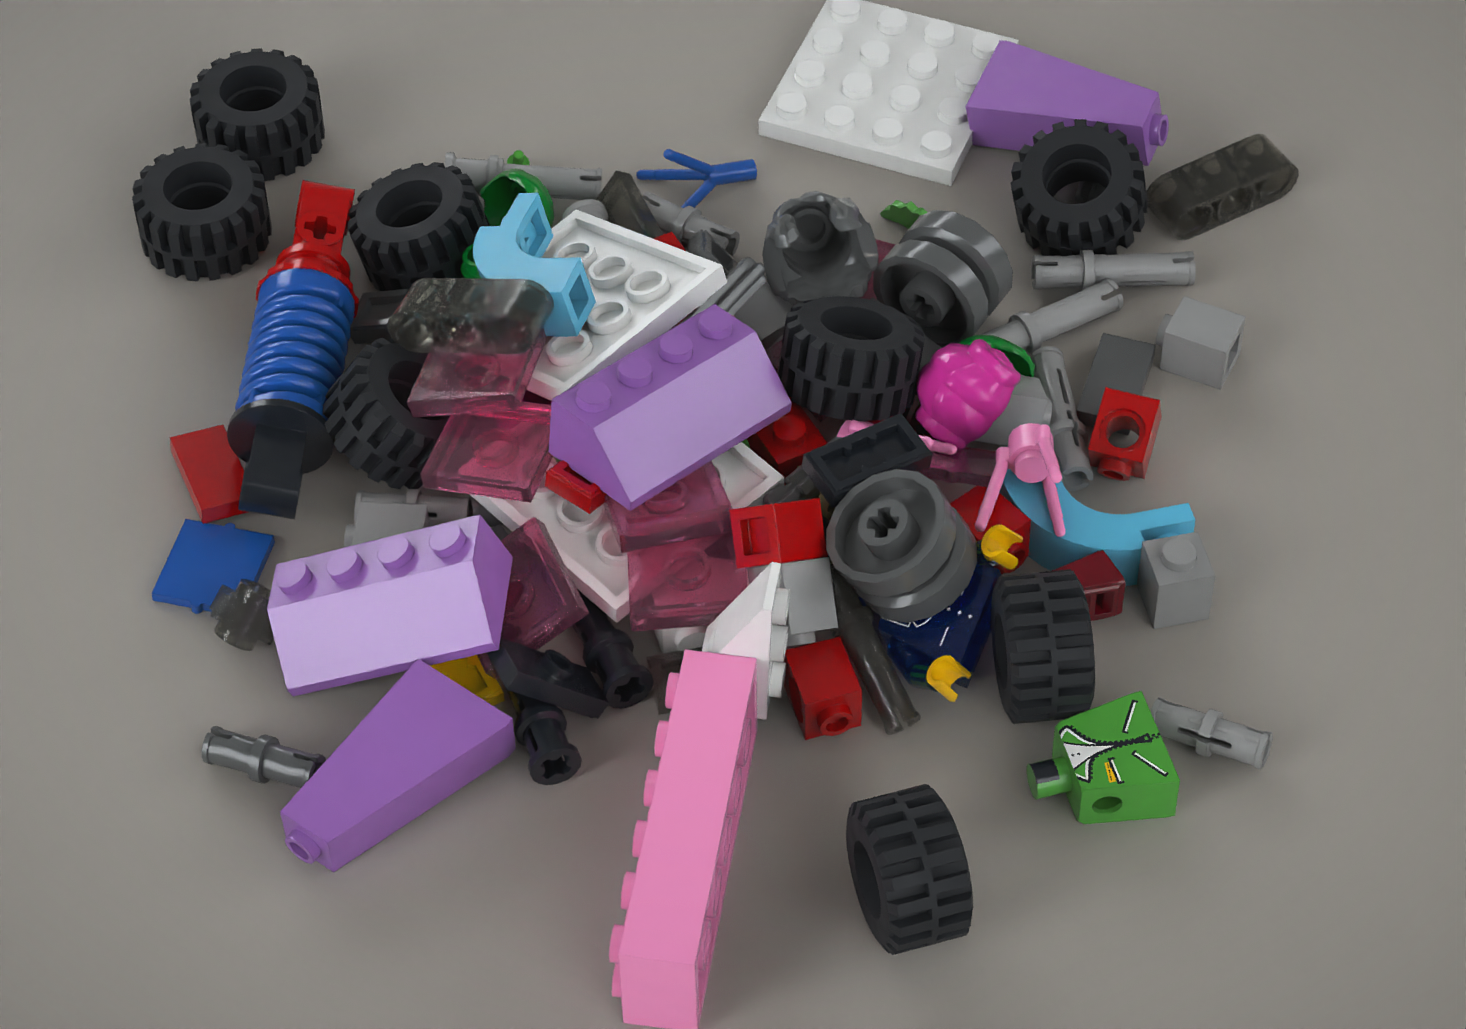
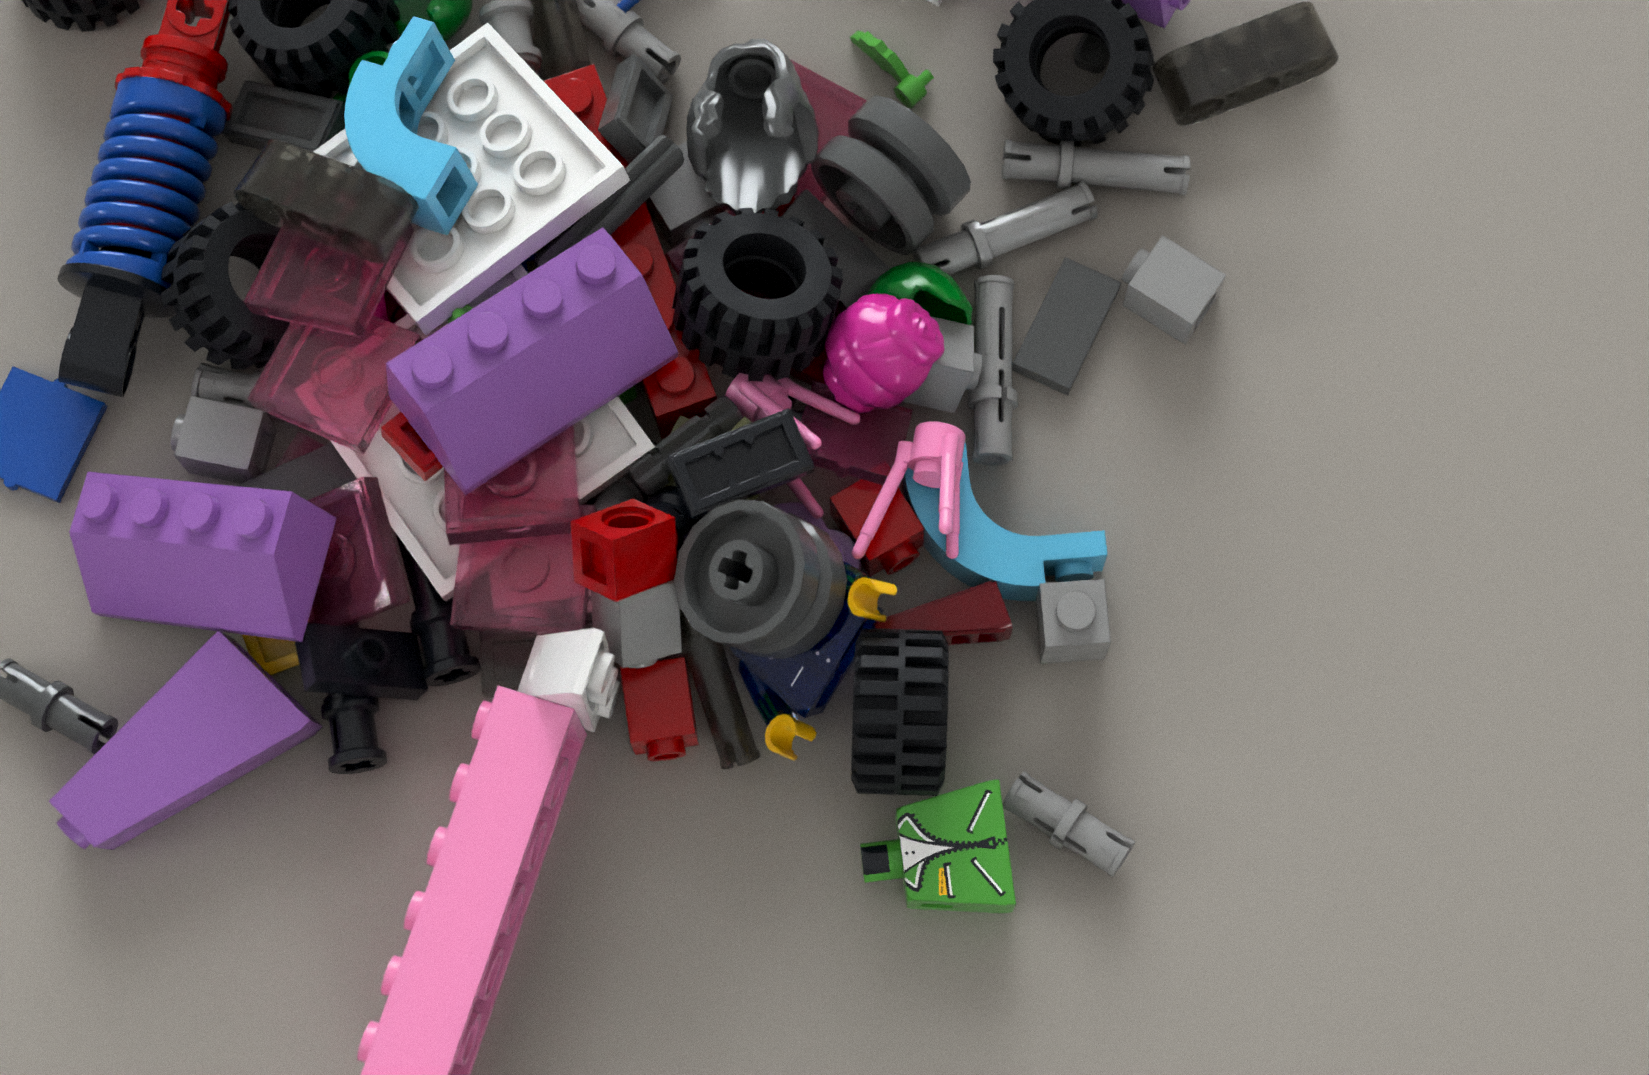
camera: 10 degrees right, 25 degrees up
(209, 472) = (41, 308): red tile -> none
(242, 615) = (47, 518): clear smoke gear -> none
(909, 869) = (698, 984): black tyre -> none
(1118, 412) = (1075, 395): red brick -> none

